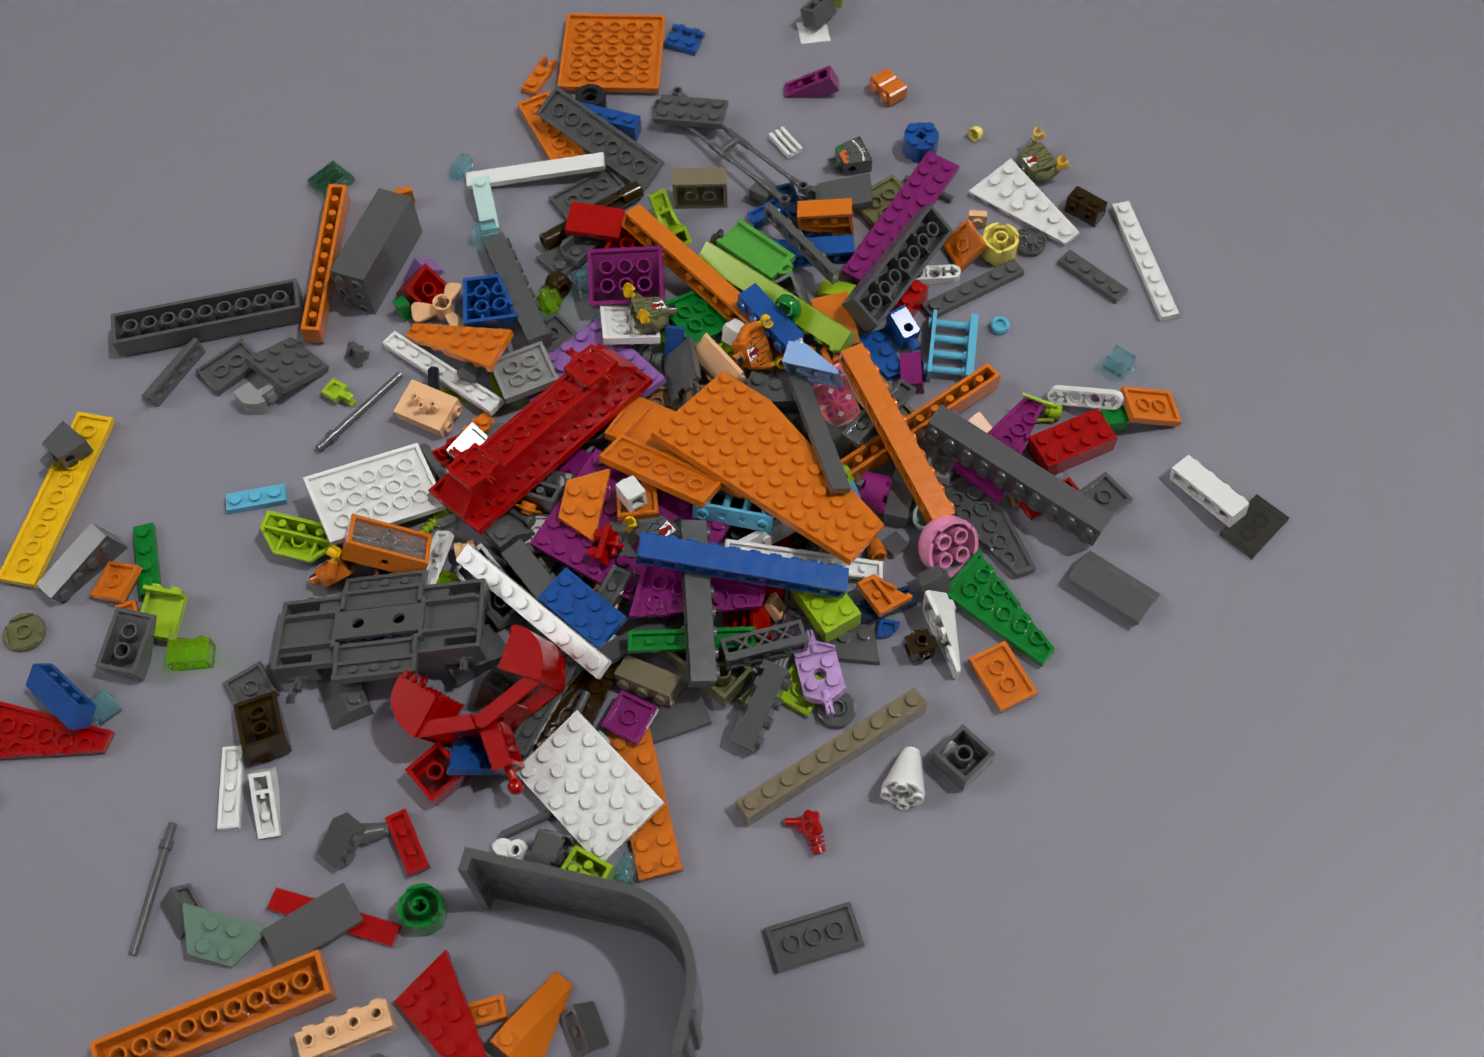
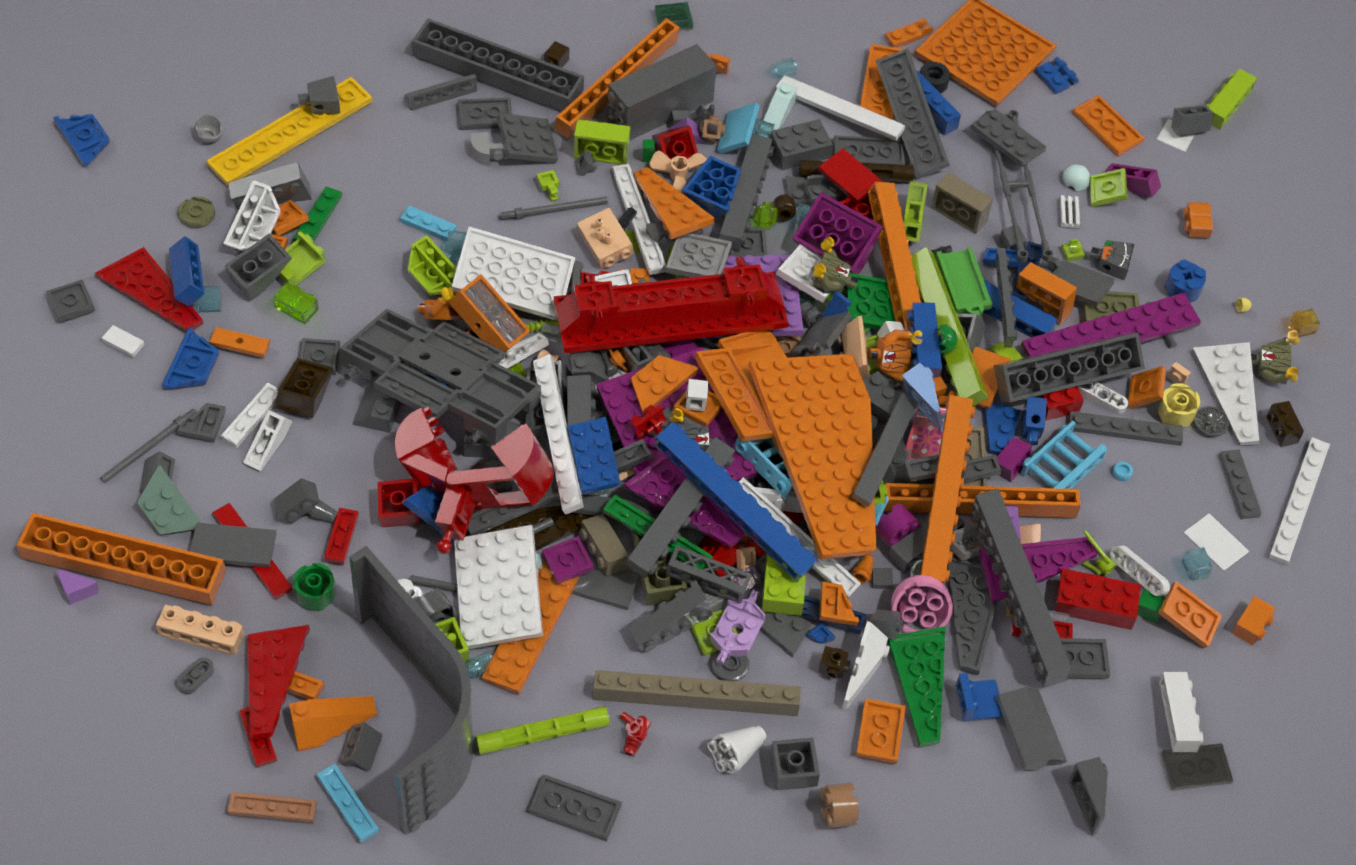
camera: 30 degrees right, 5 degrees down
(47, 805) = (123, 341): none -> white tile
(89, 602) = (255, 217): none -> white wedge
(133, 779) = (192, 362): none -> blue wing
(155, 730) = (240, 342): none -> orange tile
(192, 828) = (205, 423): none -> dark grey wing
(254, 274) = (557, 54): none -> dark brown brick
(299, 502) = (454, 244): none -> clear light blue brick
(360, 323) = (605, 141): none -> lime brick
(422, 251) = (697, 116): none -> dark grey piece
(449, 257) = (712, 135): none -> medium nougat brick
(465, 240) = (738, 128): none -> medium azure tile
(528, 220) = (801, 142): none -> dark grey brick
(756, 55) = (1108, 125): none -> orange tile
(760, 851) = (542, 730): none -> lime piece
(767, 111) = (1077, 177): none -> light aqua hair
(800, 104) = (1108, 187): none -> lime tile
(814, 172) = (1073, 250): none -> lime tile
(1029, 766) = (839, 805): none -> medium nougat brick
(1031, 118) = (1304, 322): none -> clear yellow brick
(1053, 592) = (977, 698): none -> blue bracket
(1109, 333) = (1217, 541): none -> white sticker
(1196, 378) = (1253, 620): none -> orange brick
(1207, 608) = (1089, 788): none -> dark grey slope

